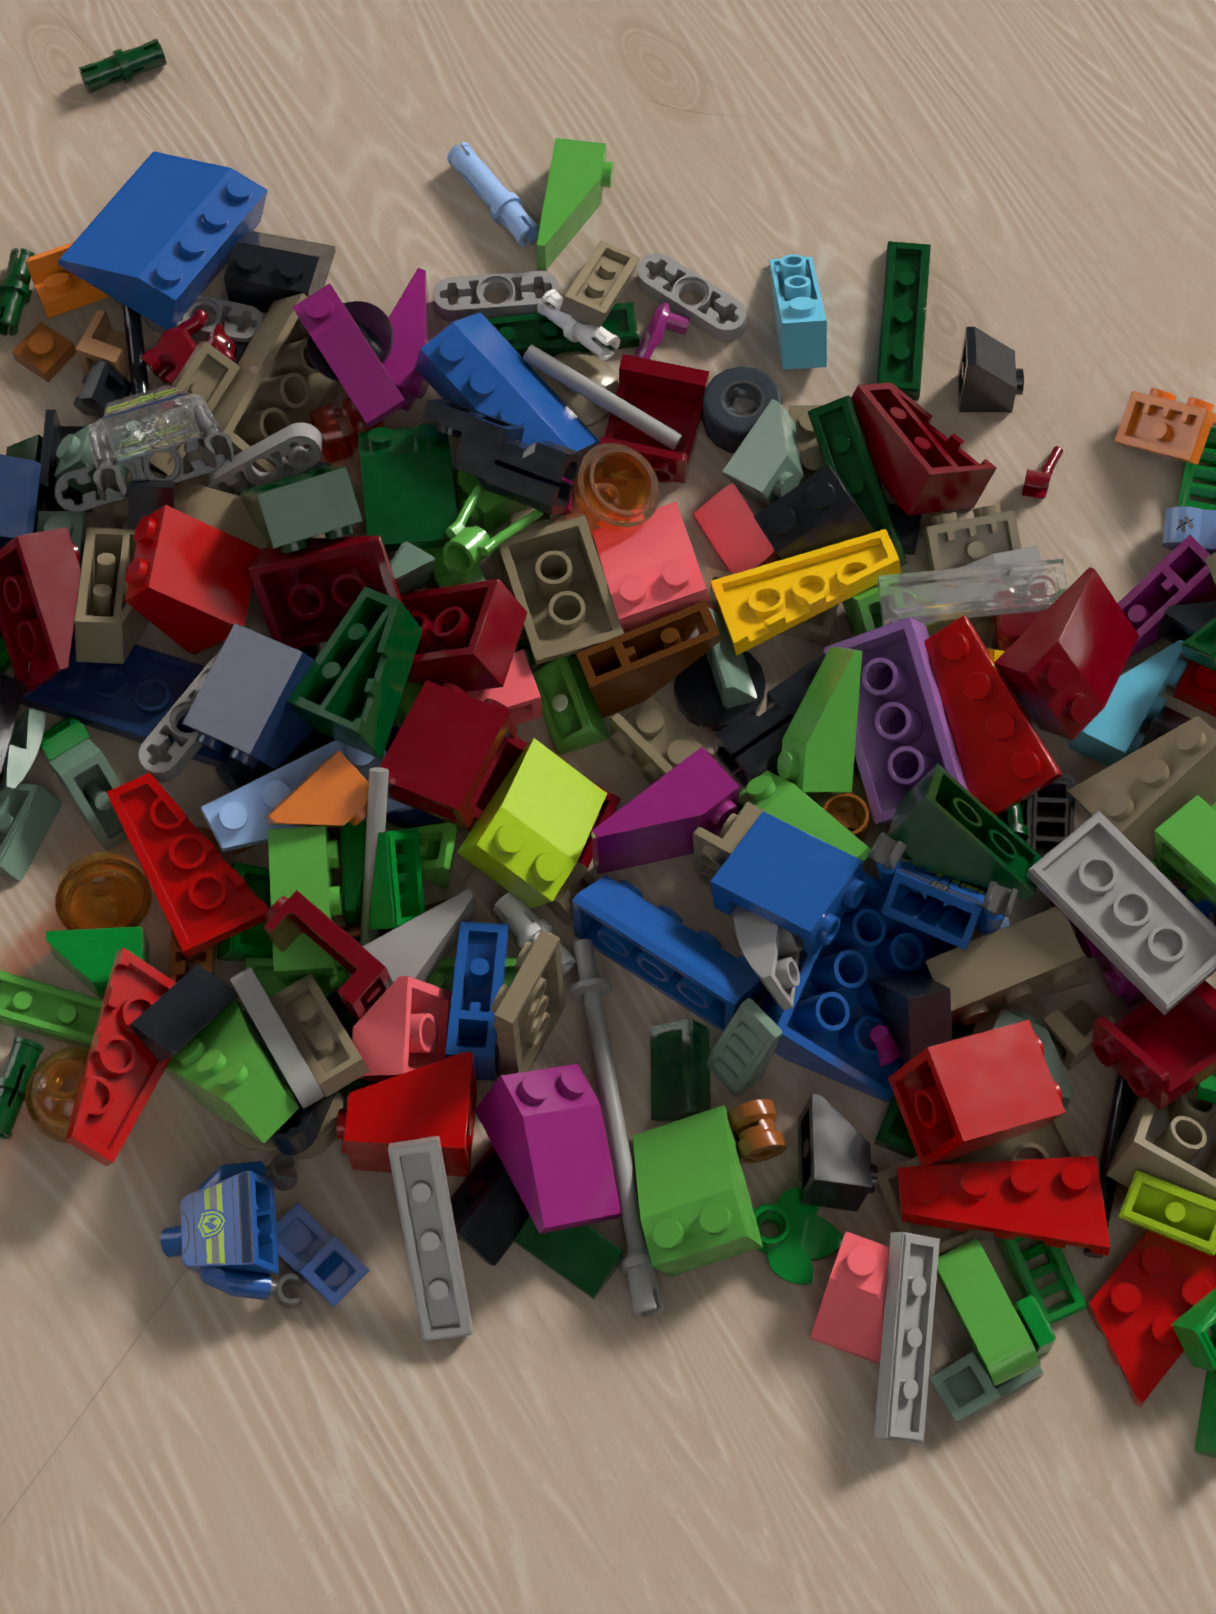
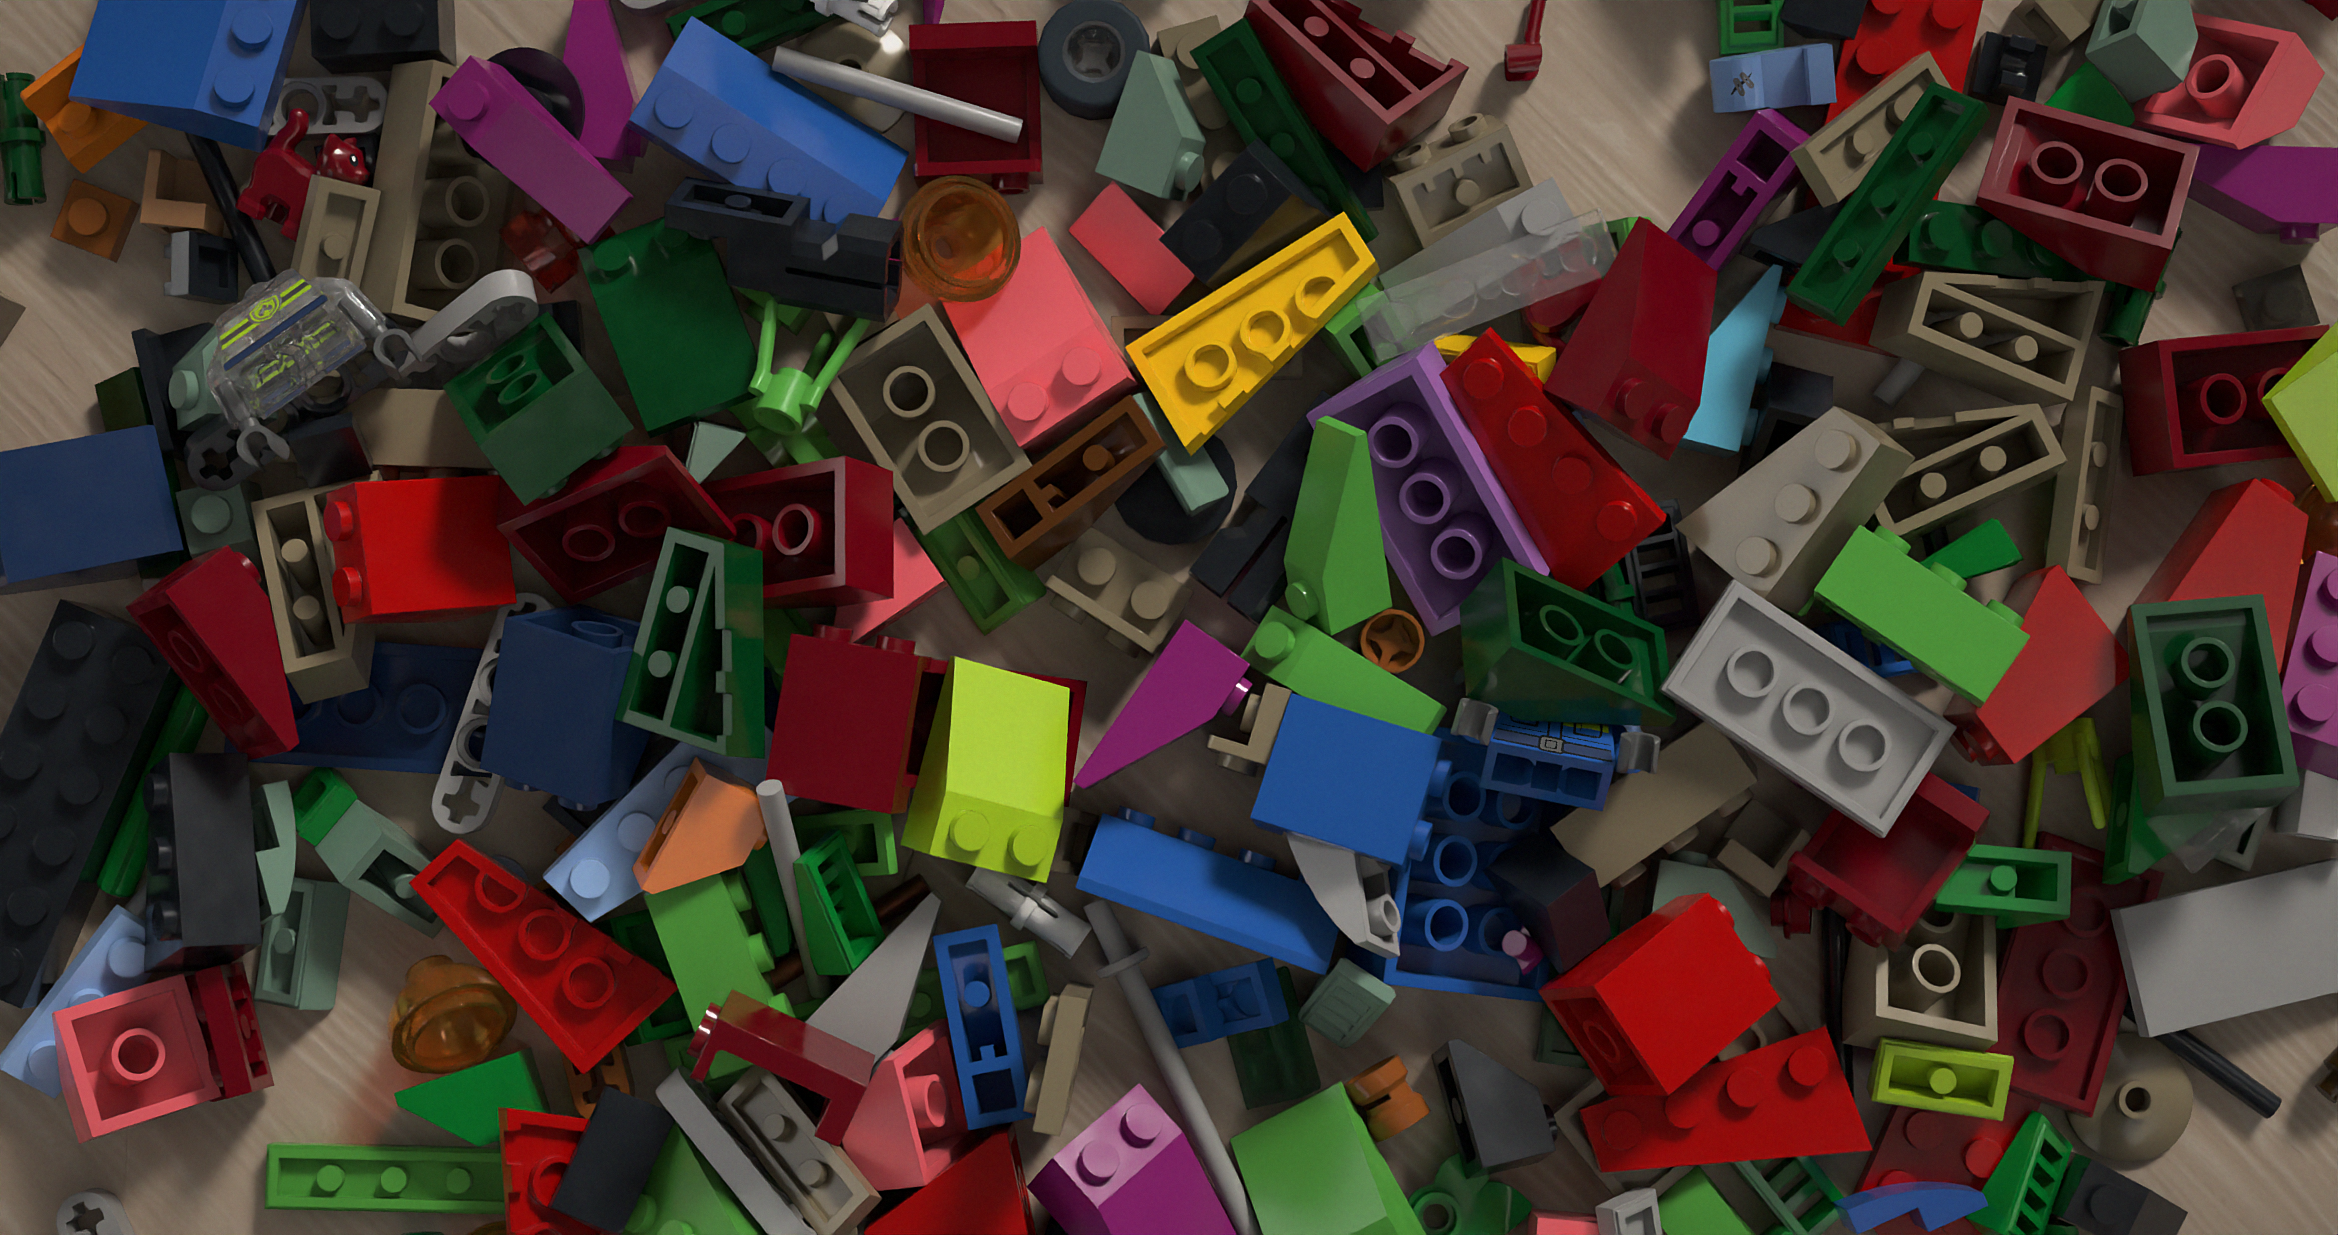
camera: 15 degrees left, 20 degrees up
(656, 1034) = (1222, 1003): none -> blue slope
(1092, 1079) = (1790, 912): none -> dark red plate
(1144, 1299) = (1926, 1202): none -> blue slope

